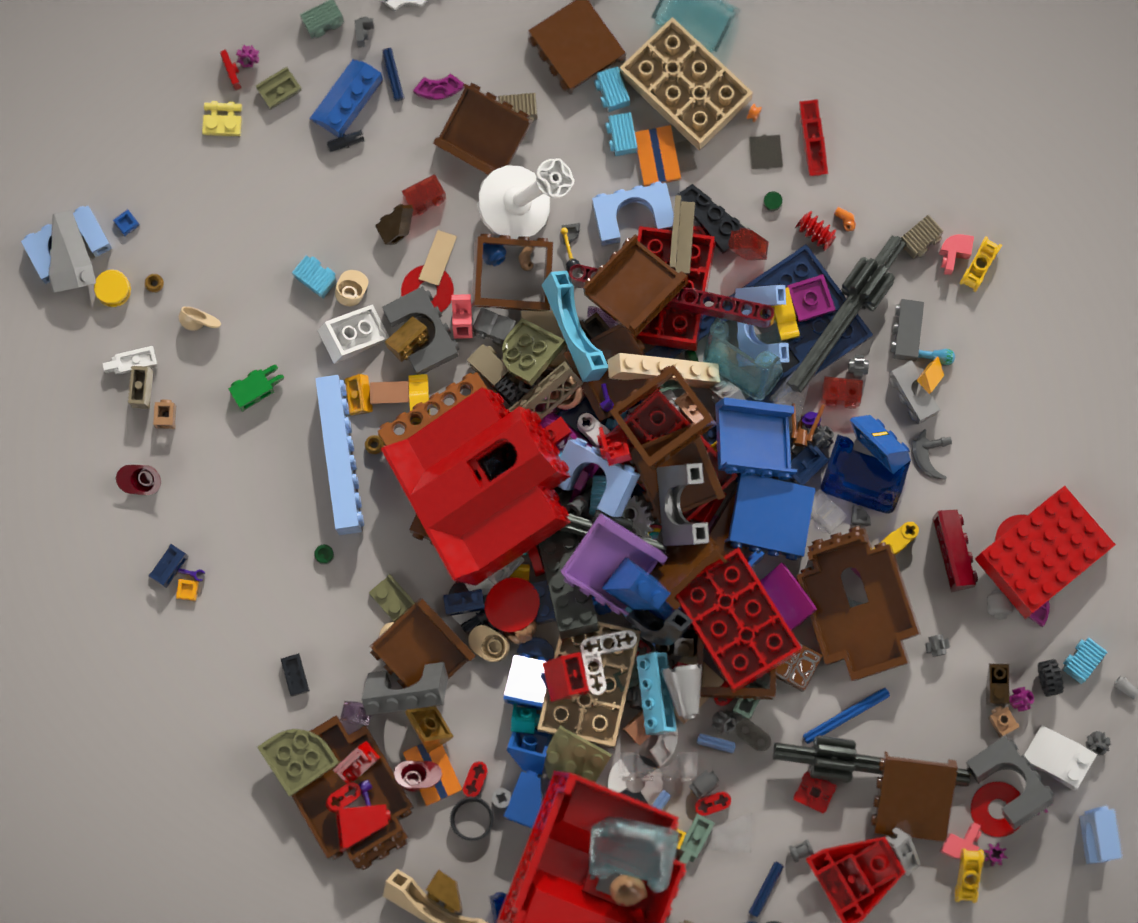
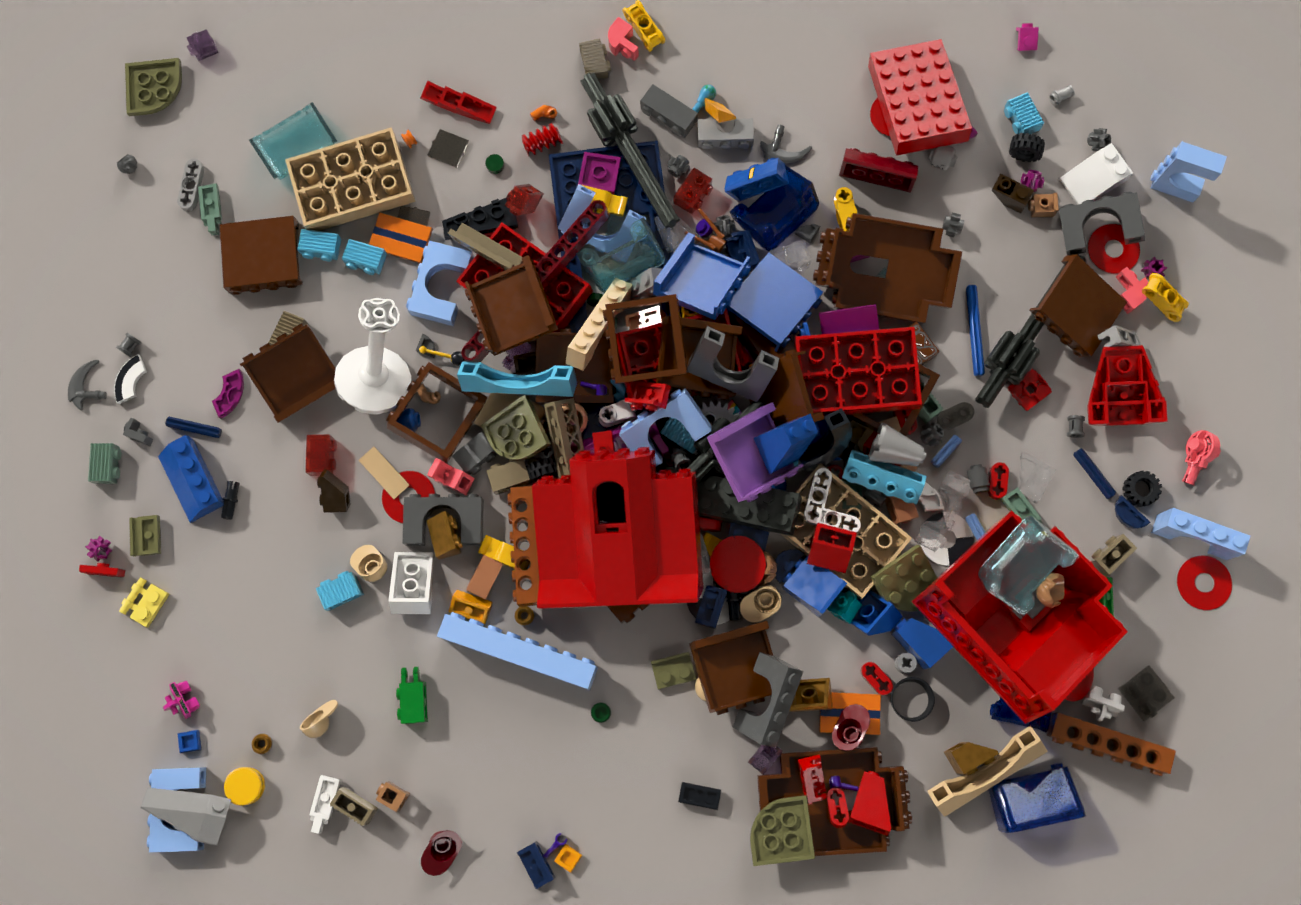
camera: 60 degrees left, 0 degrees up
(163, 190) = (178, 691): none -> dark pink hips

